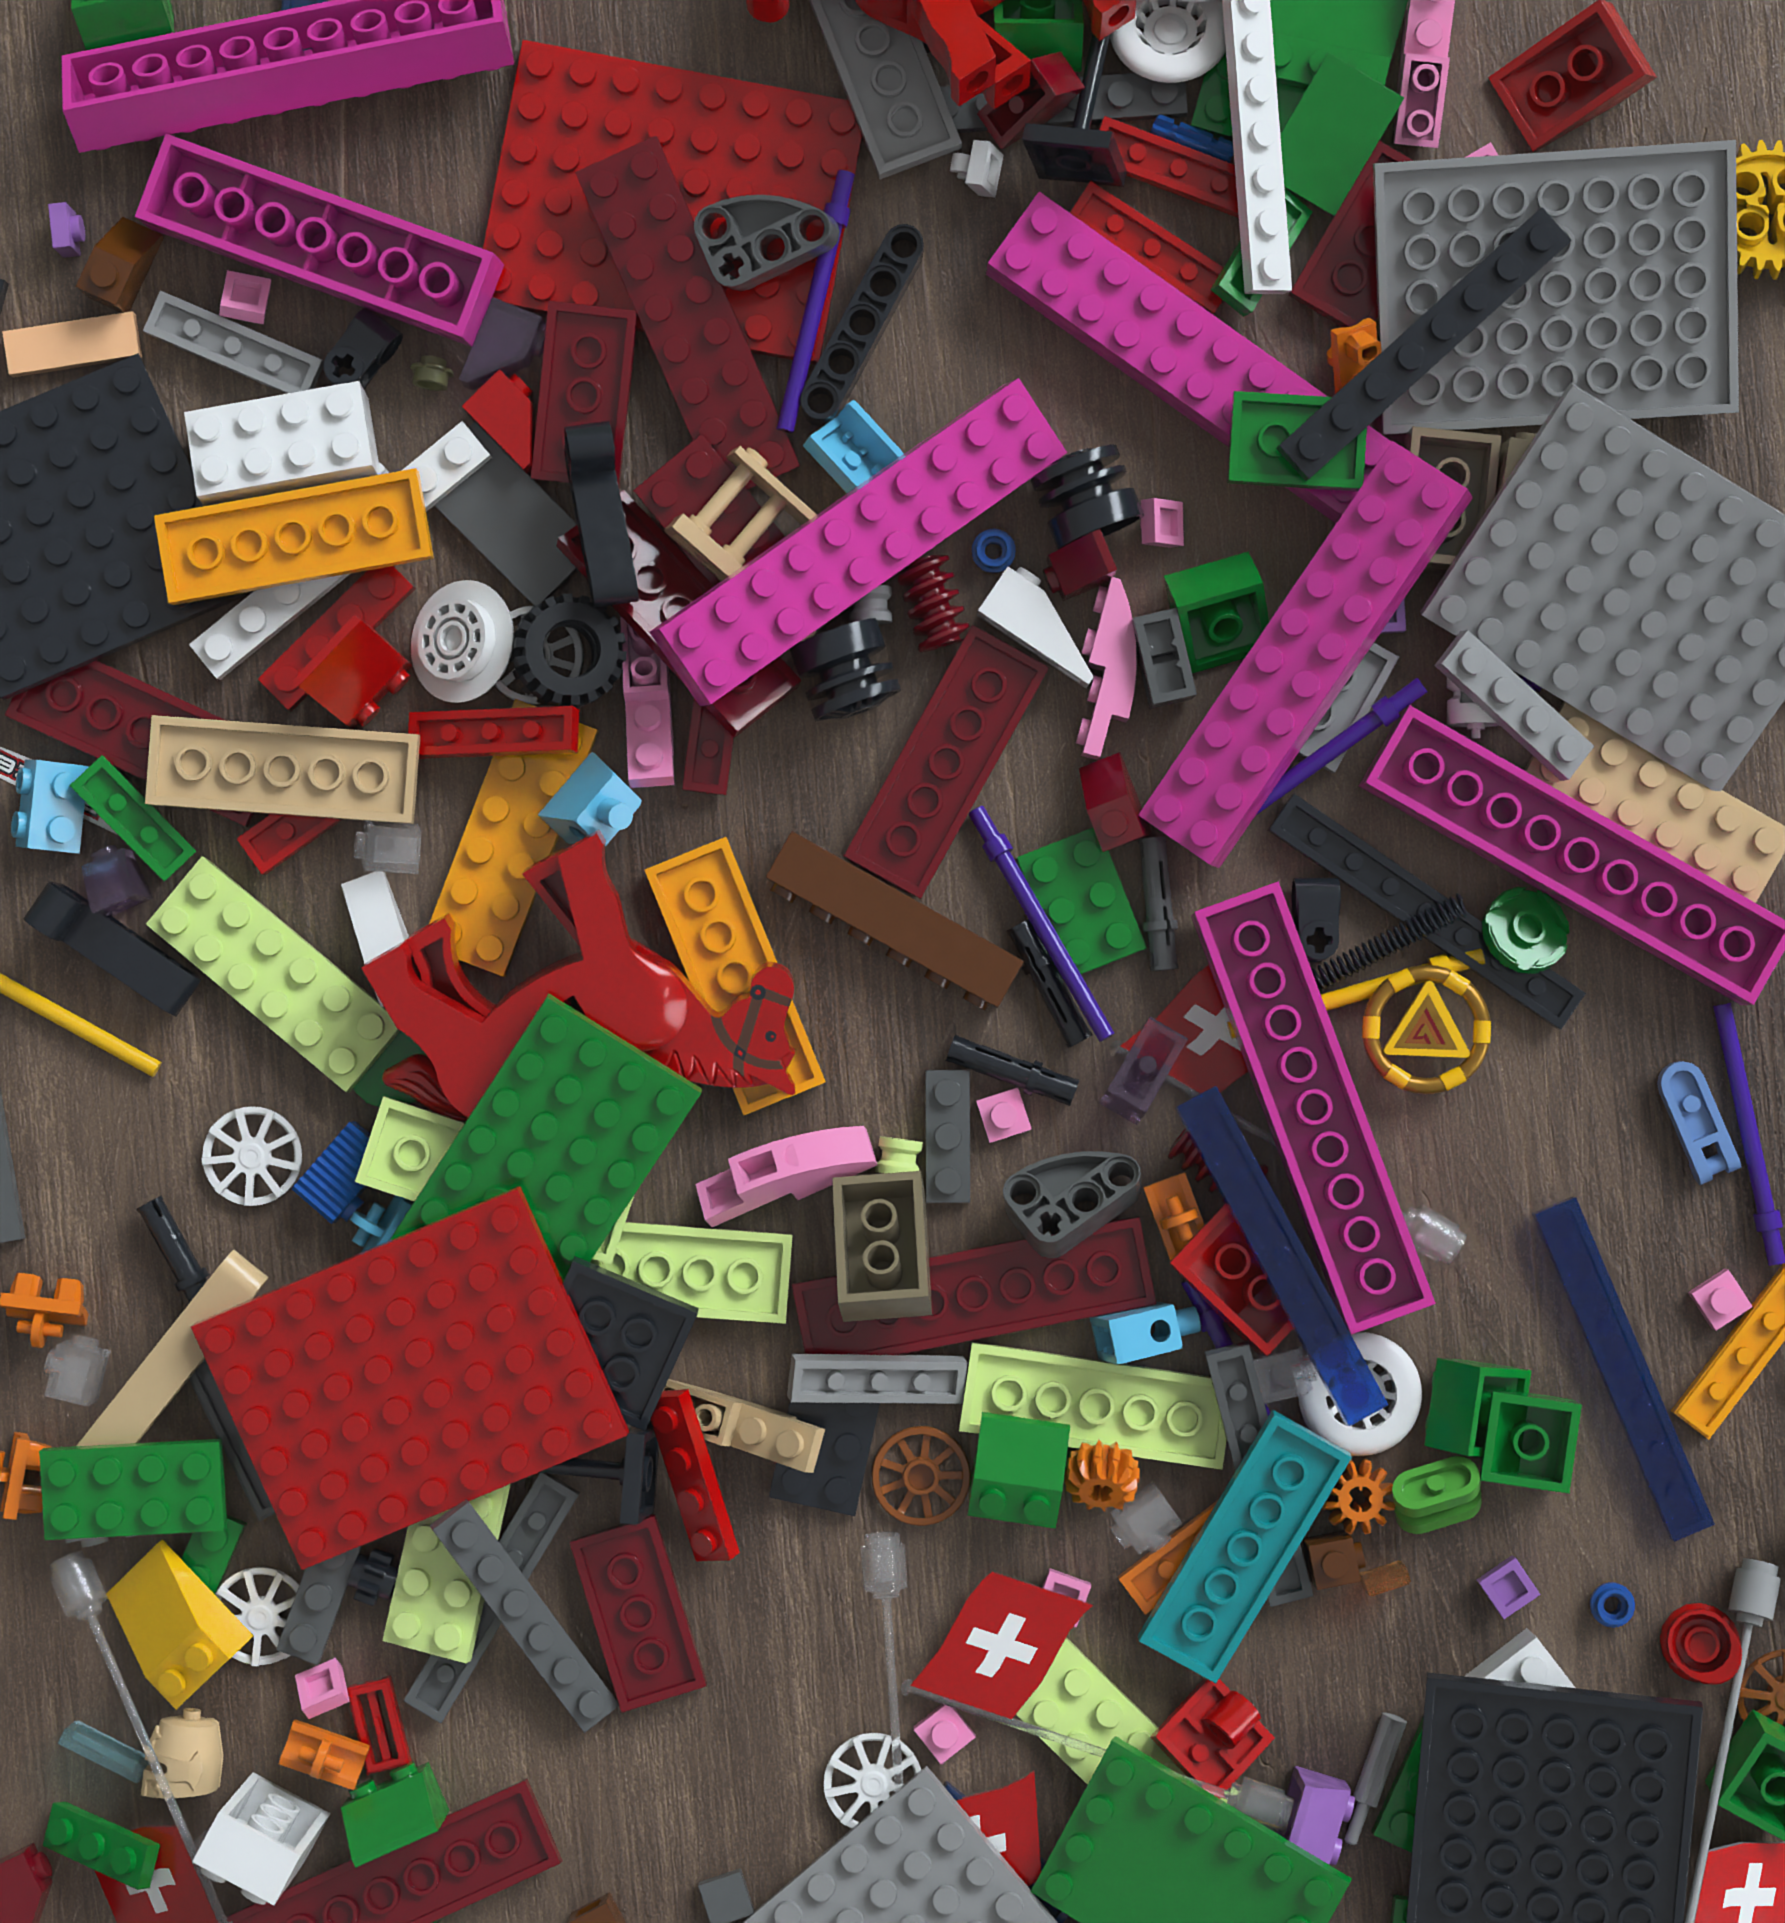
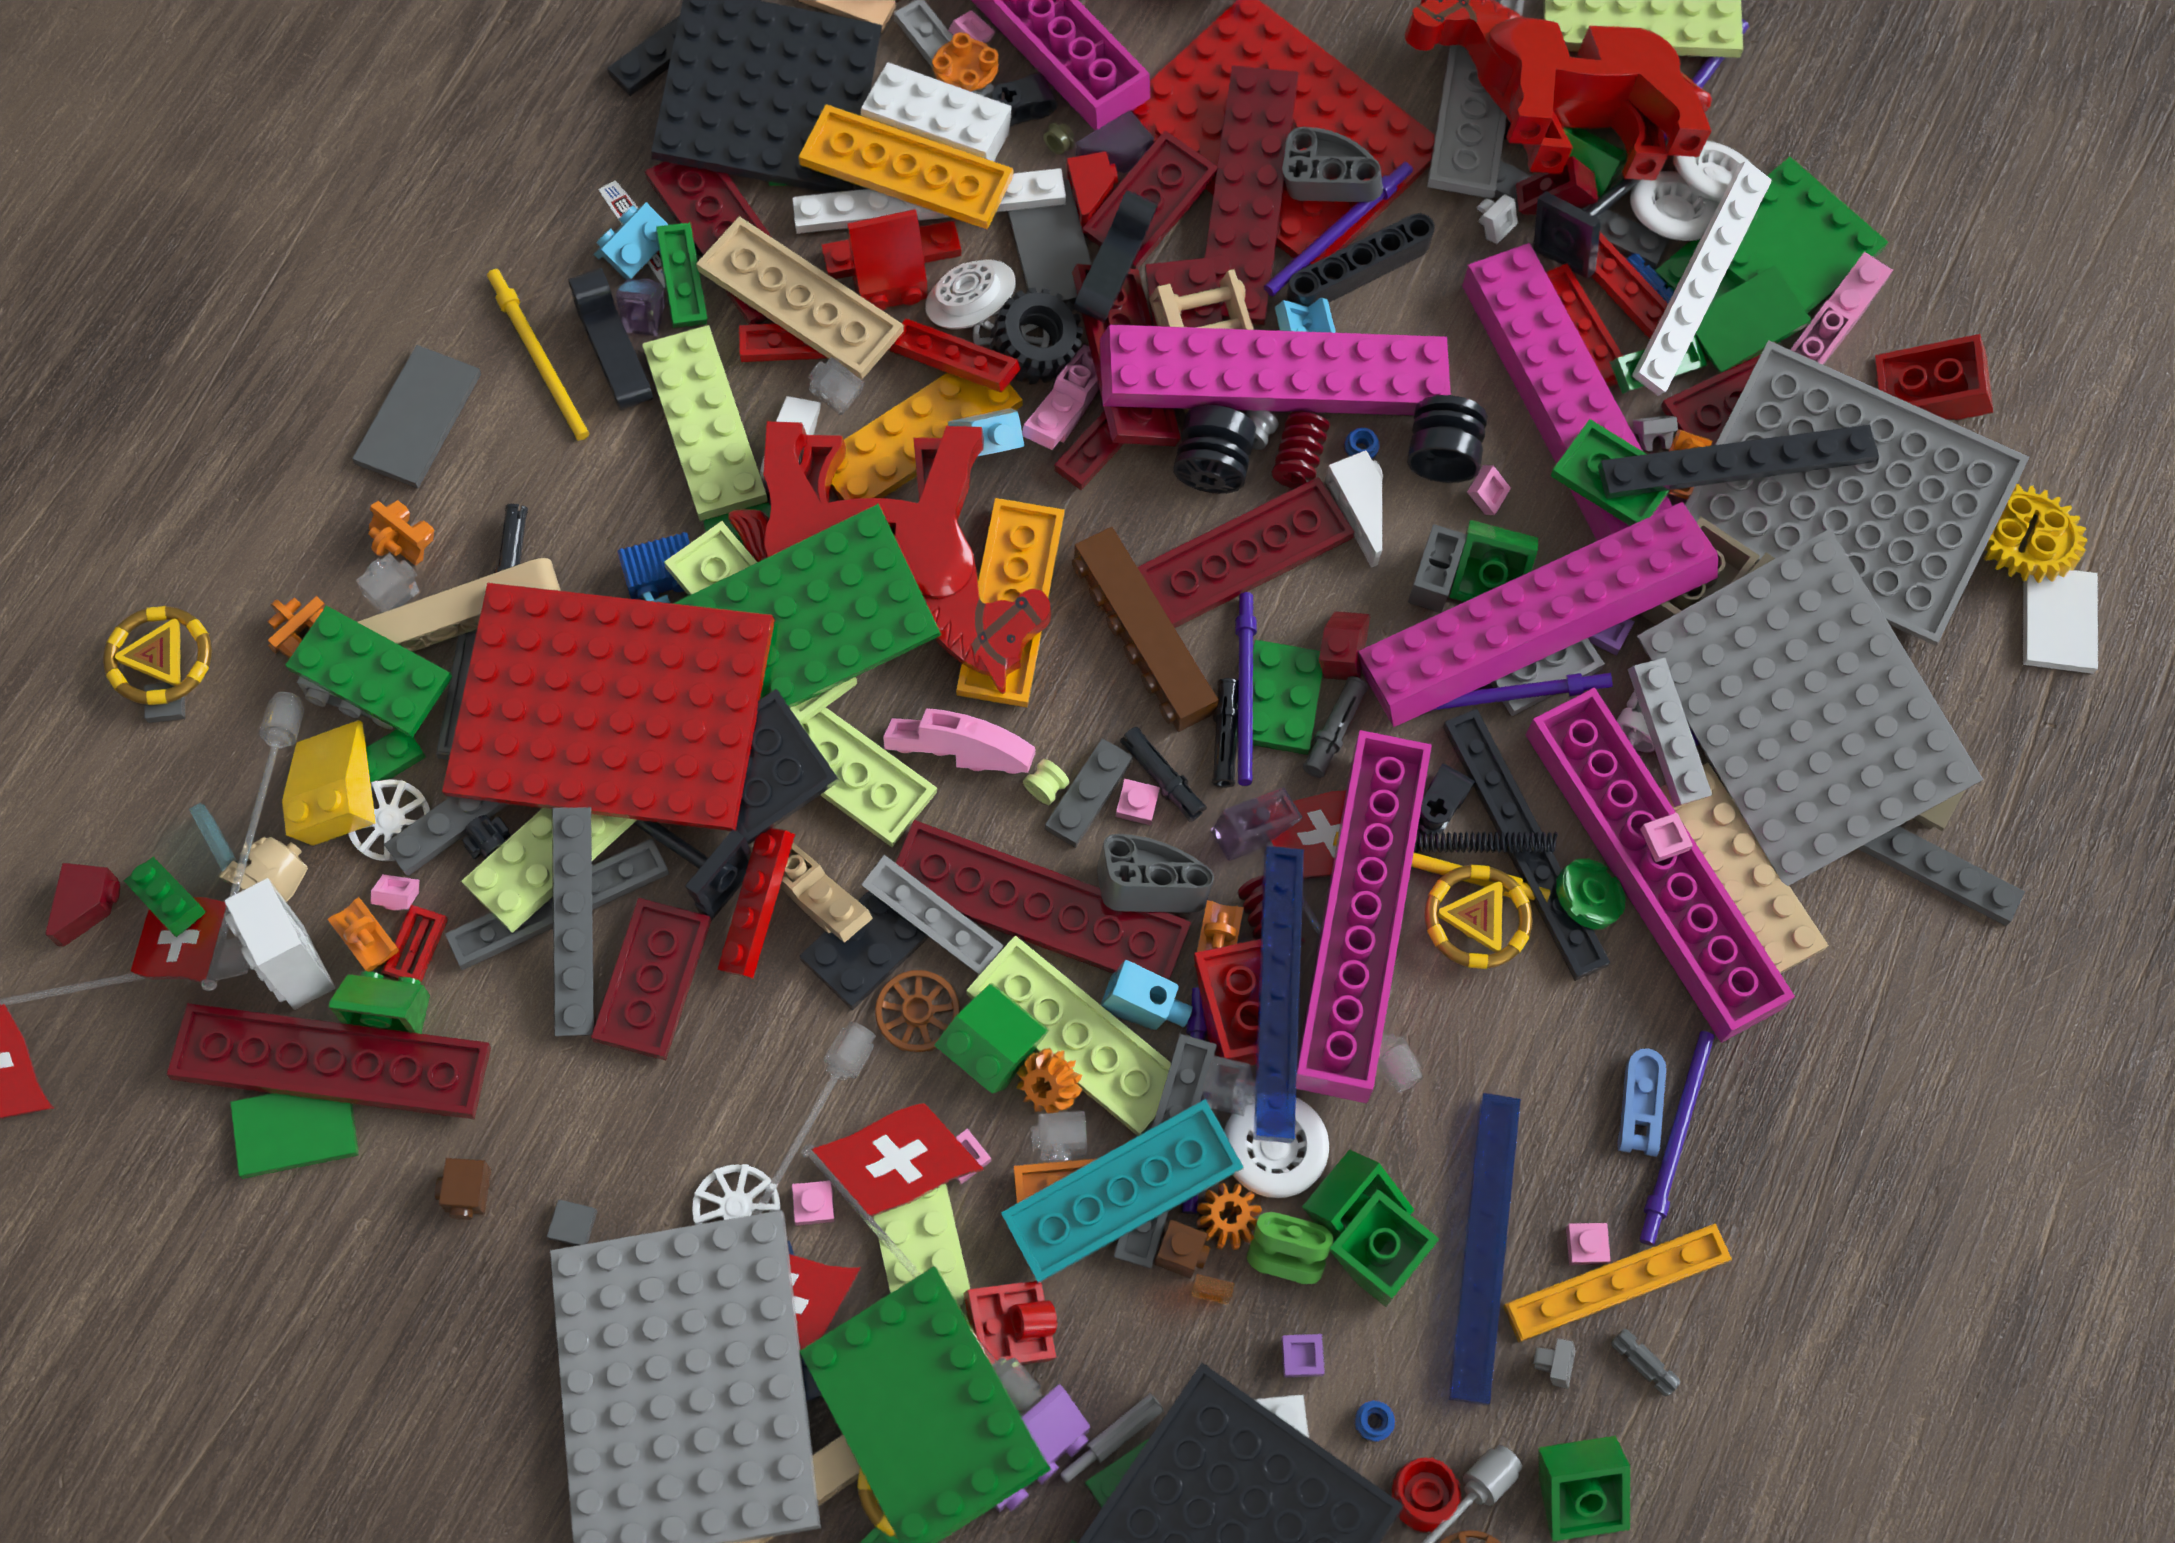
camera: 25 degrees right, 20 degrees down
(251, 1156) = (604, 523): white wheel -> none
(270, 353) = (965, 63): none -> orange dish
(881, 1246) = (995, 823): dark tan brick -> none
(1080, 566) = (1416, 480): dark red slope -> none
(1113, 651) = (1399, 558): bright pink slope -> none
(1299, 328) = (1655, 426): none -> light grey tile
(1578, 838) = (1666, 837): none -> bright pink plate
(1755, 1442) = (1557, 1362): none -> light grey tile

